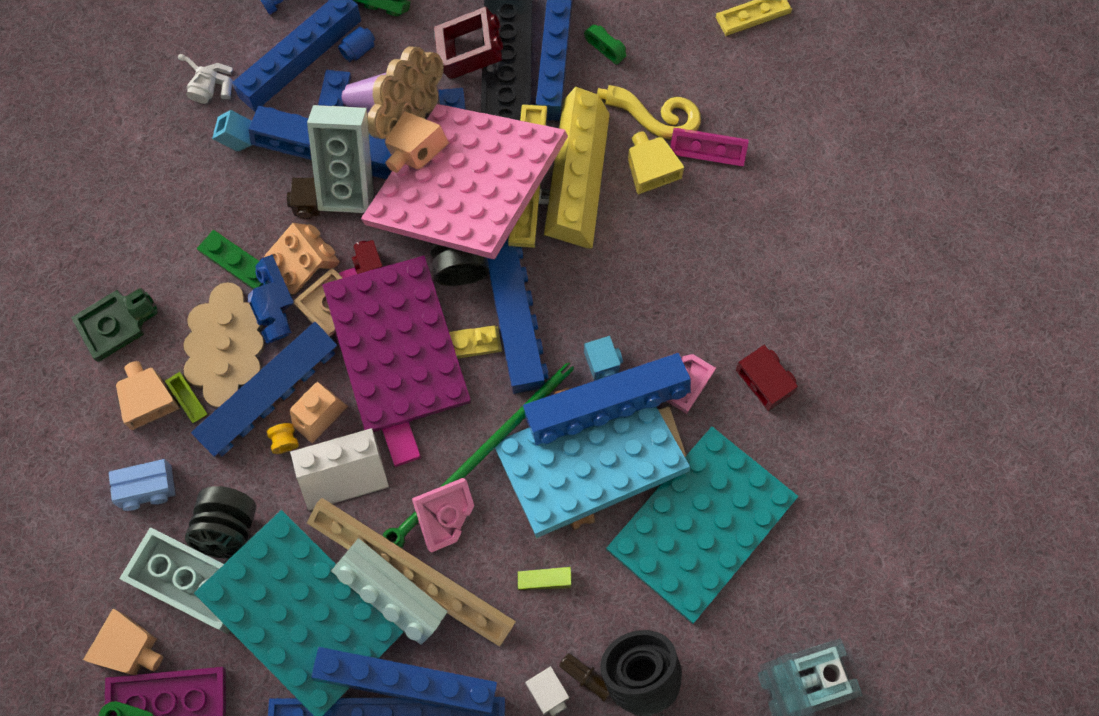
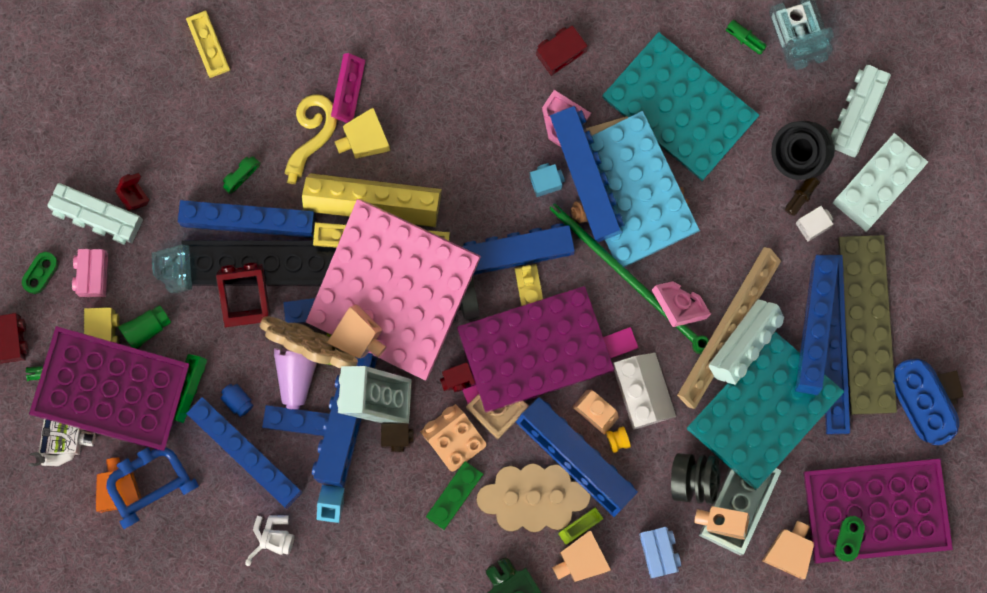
camera: 90 degrees left, 10 degrees up
(153, 550) = (734, 525): none -> light nougat torso
(270, 300) = (497, 456): blue plate -> none
(545, 578) = (728, 226): lime piece -> none
(798, 608) = (746, 37): none -> green axle

